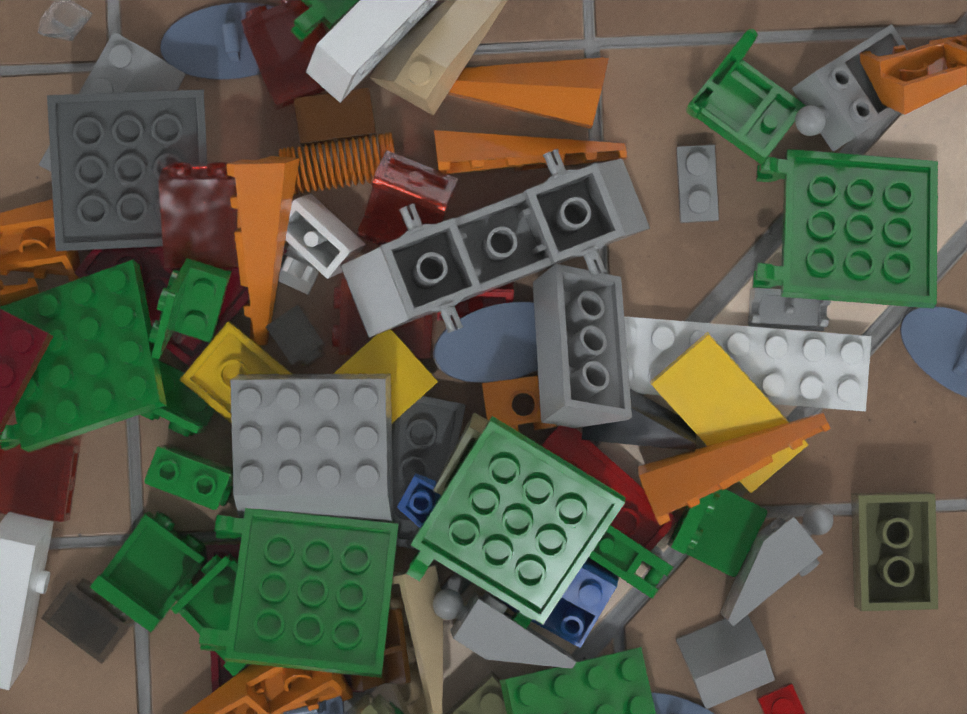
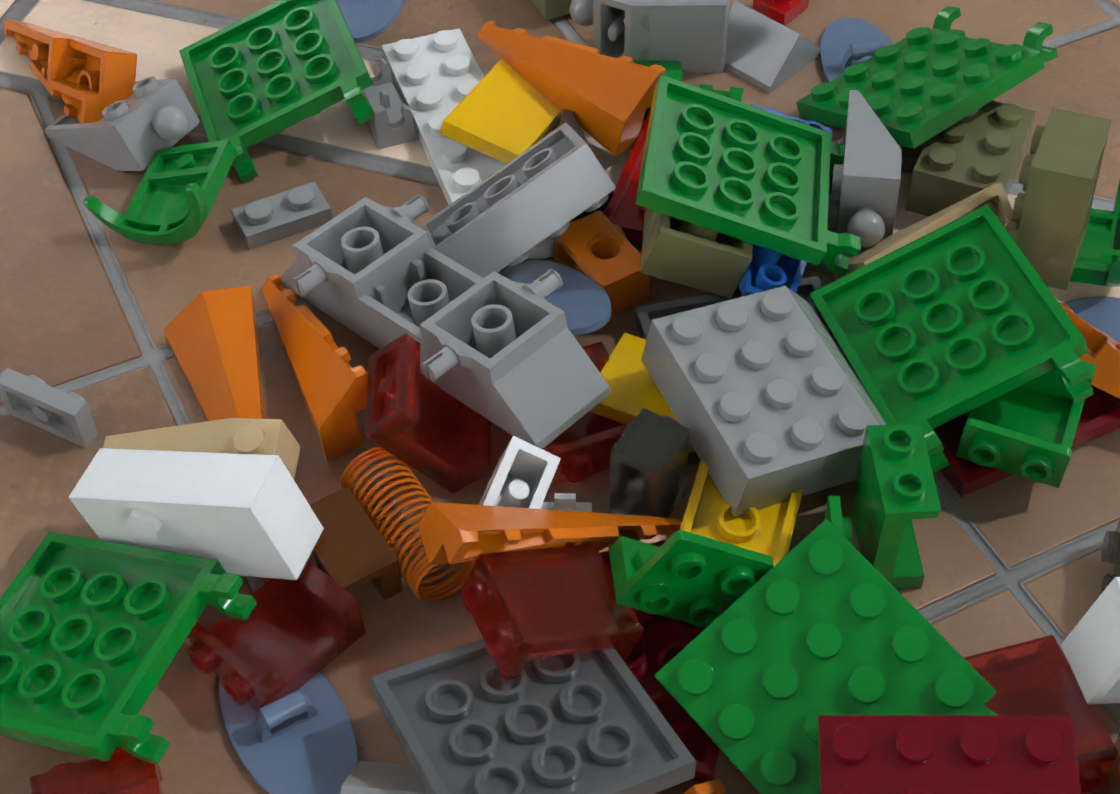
camera: 115 degrees left, 40 degrees down
(150, 570) = (1037, 540): green panel -> none

